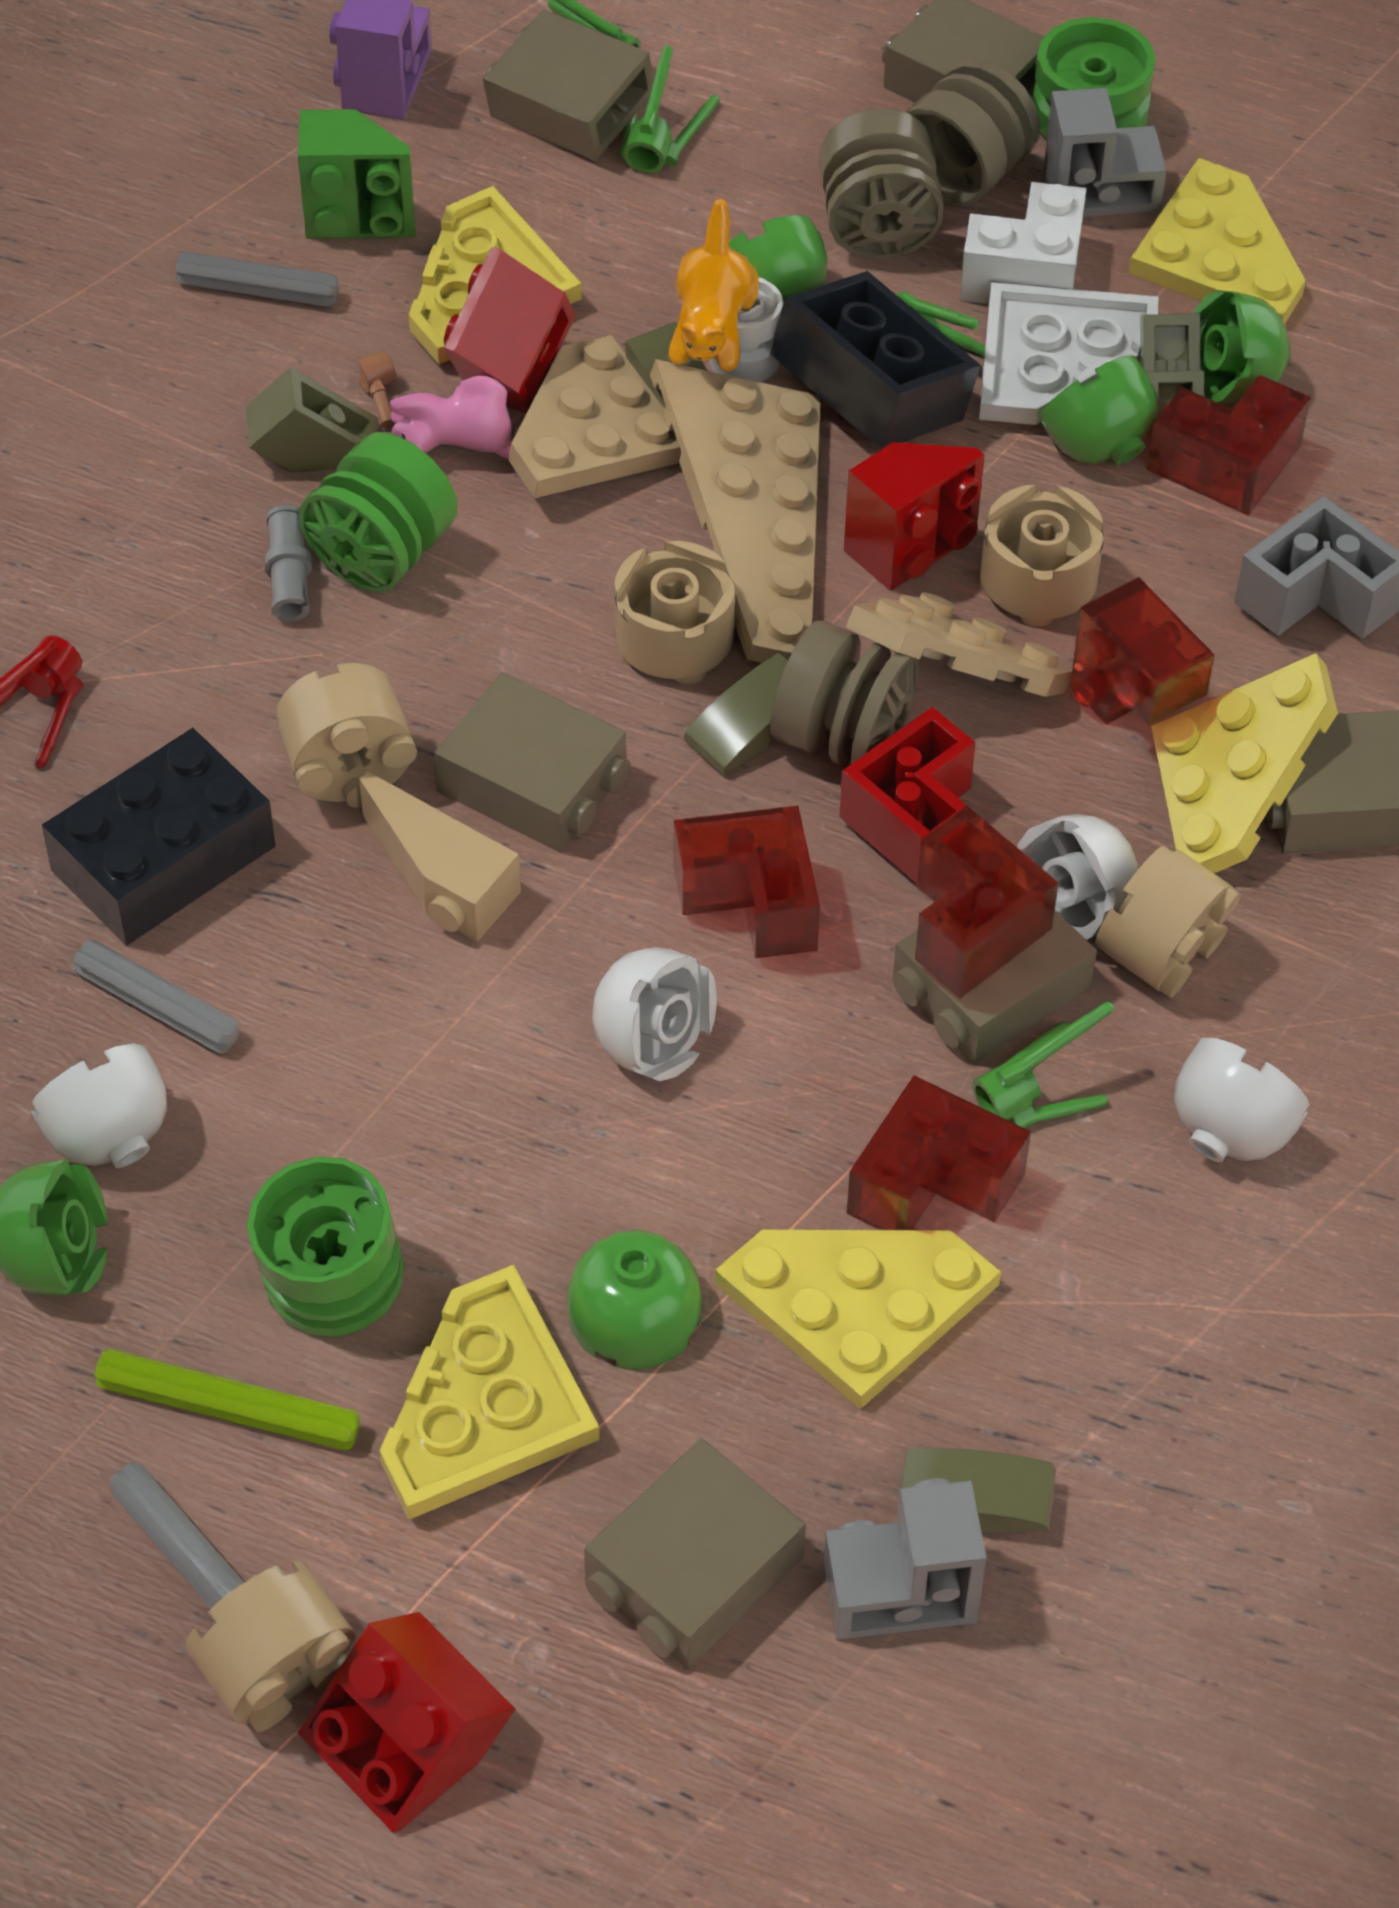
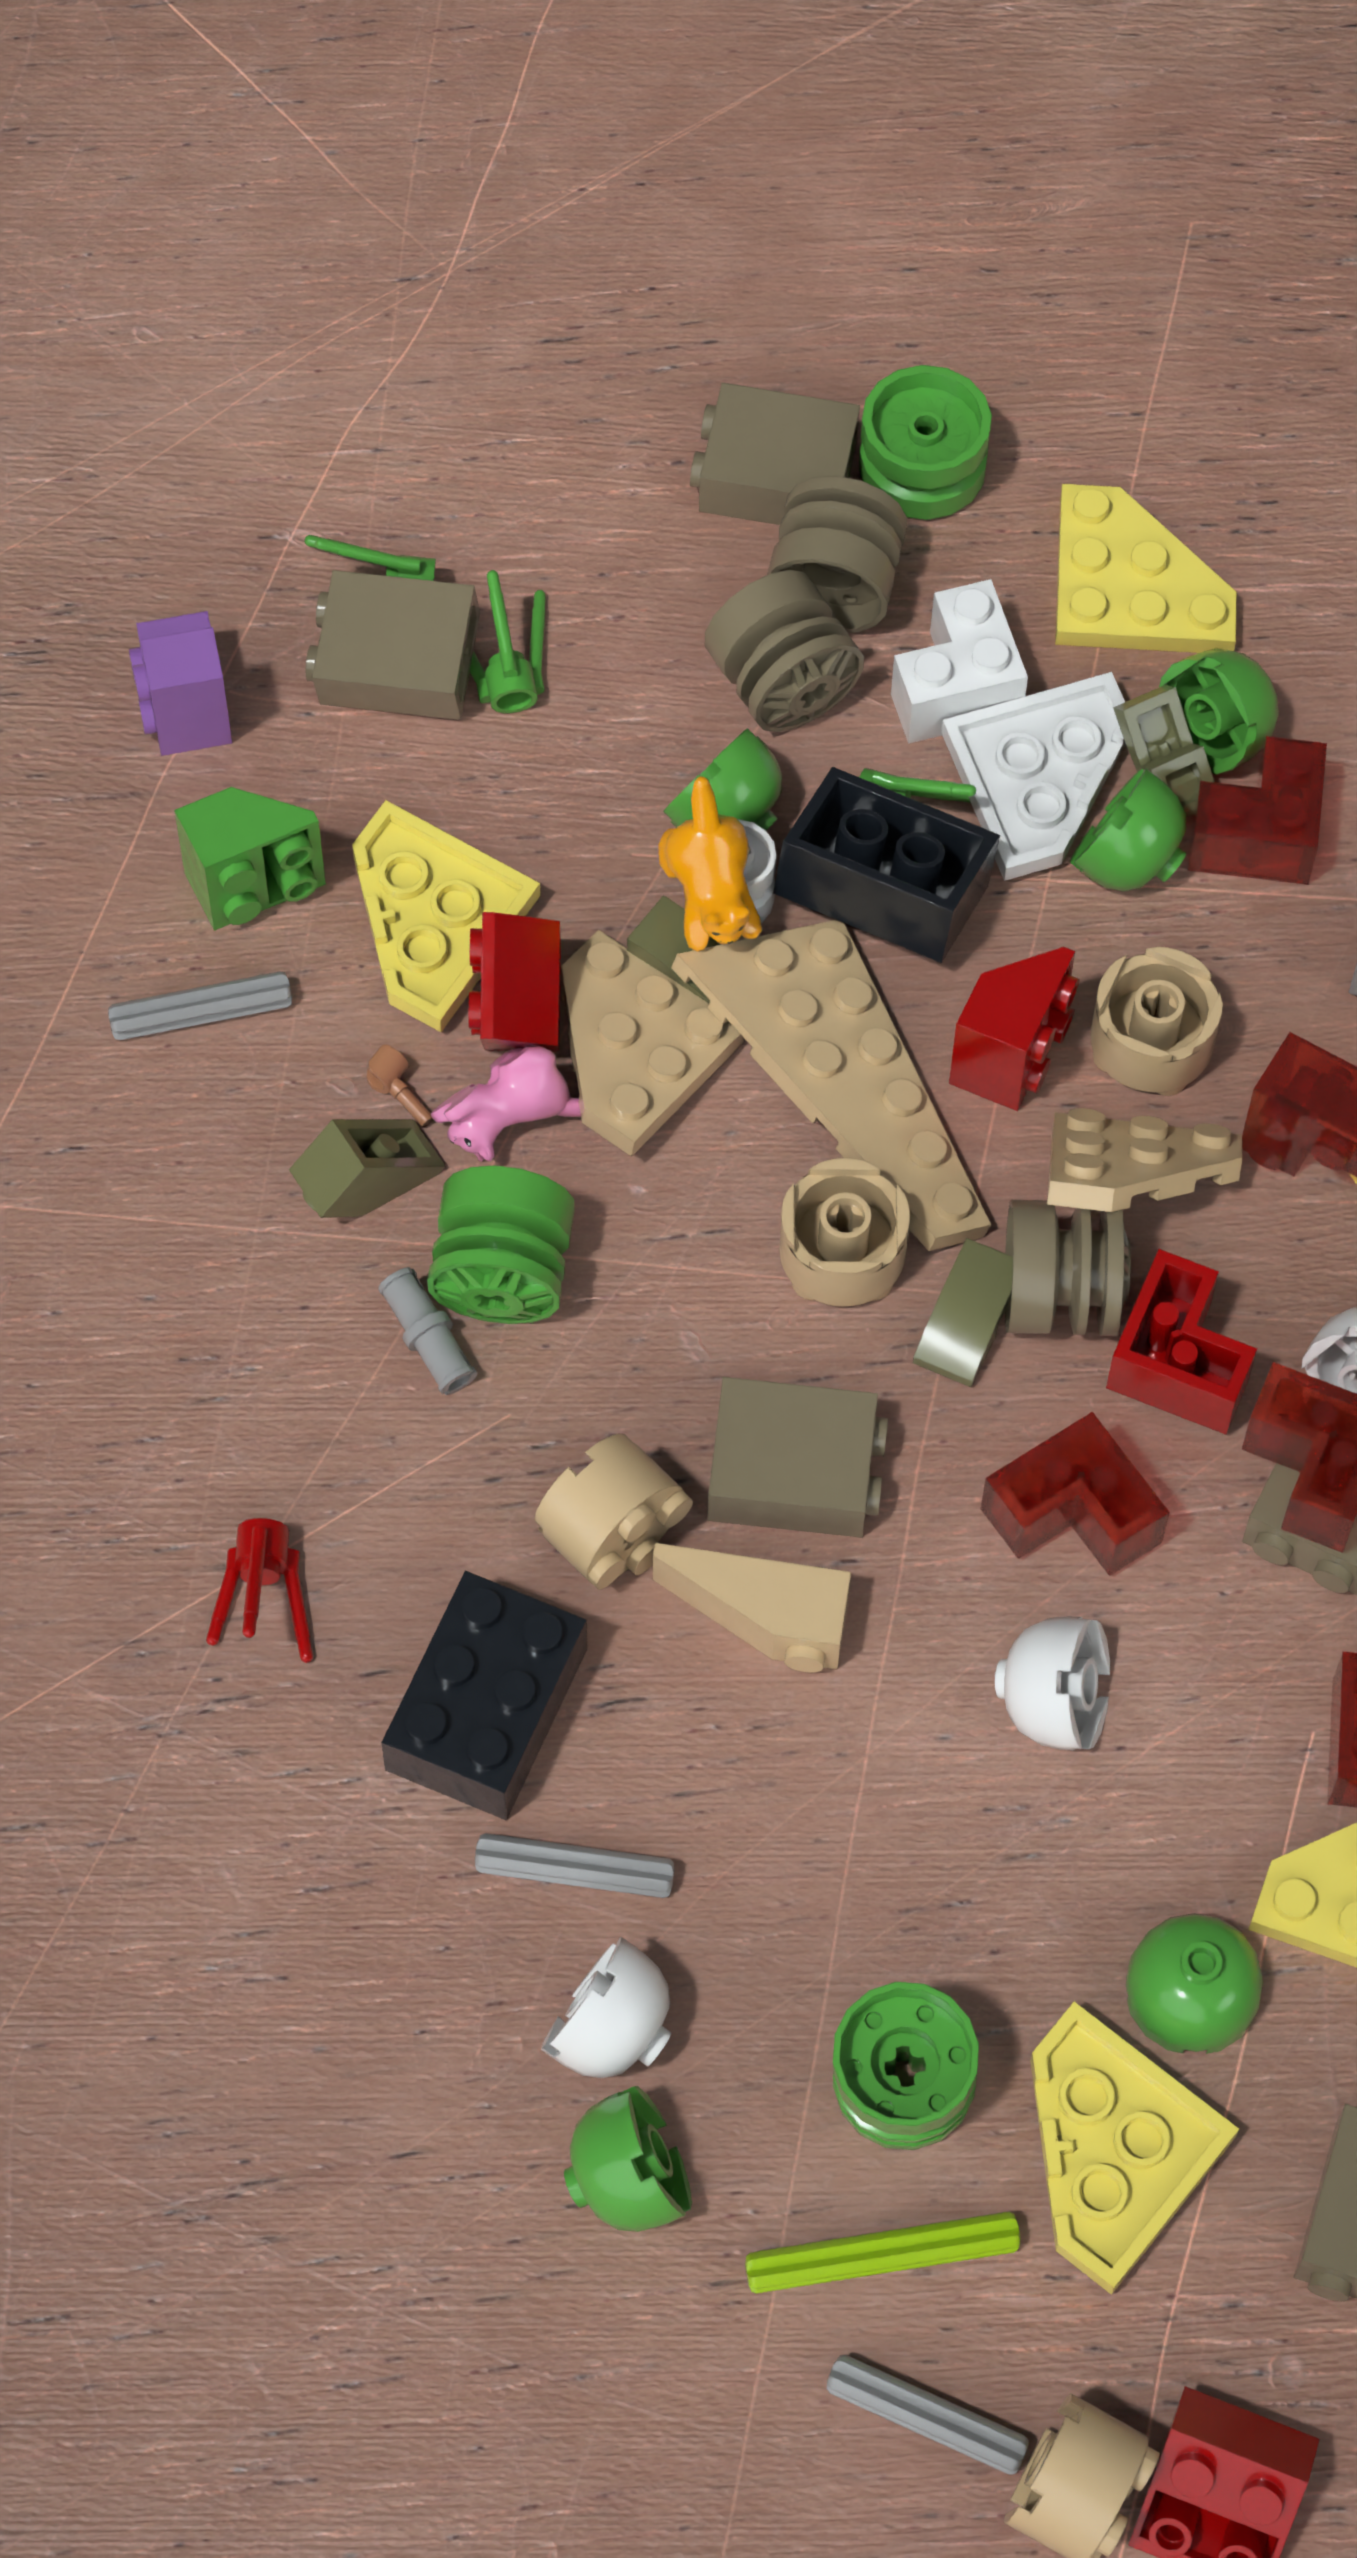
camera: 25 degrees left, 10 degrees up
(1114, 164) = (977, 529): light grey brick -> none

